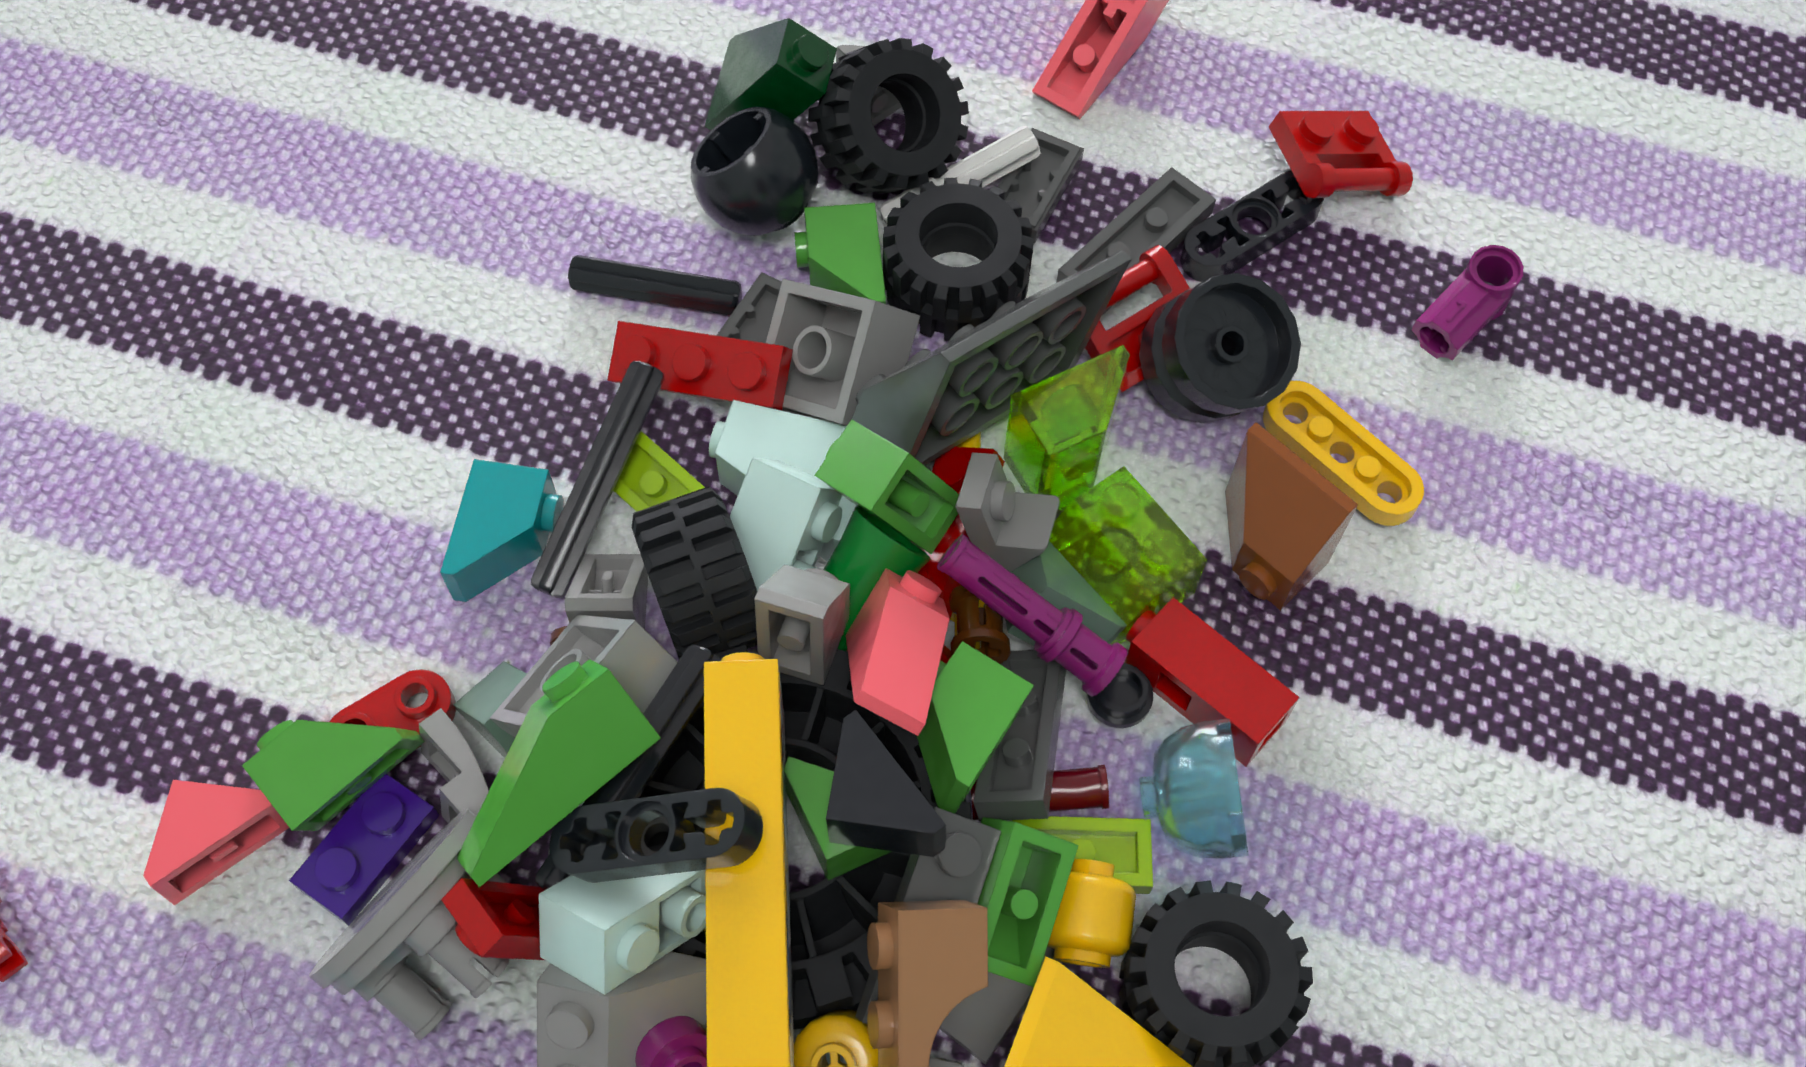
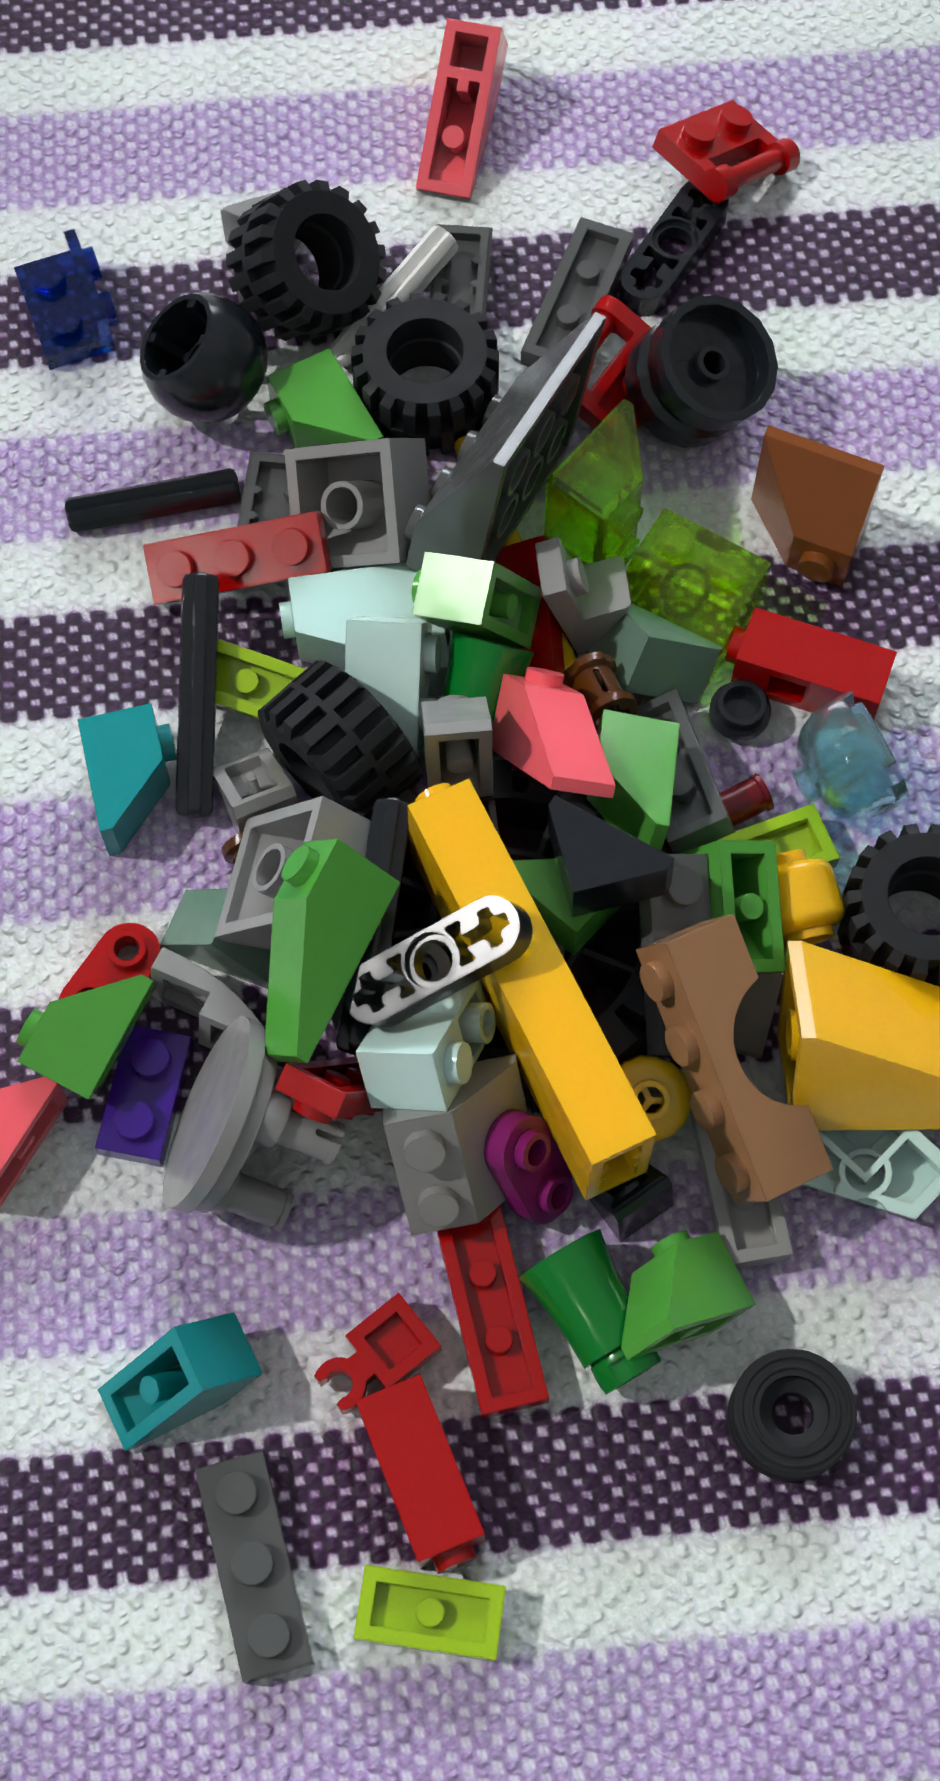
camera: 20 degrees left, 5 degrees up
(665, 87) = (65, 304): none -> clear blue bracket
(772, 68) = (174, 255): dark green slope -> none
(1056, 632) = (675, 668): magenta pin -> none
(1331, 430) = (867, 426): yellow plate -> none
(1469, 302) = (896, 249): magenta piece -> none

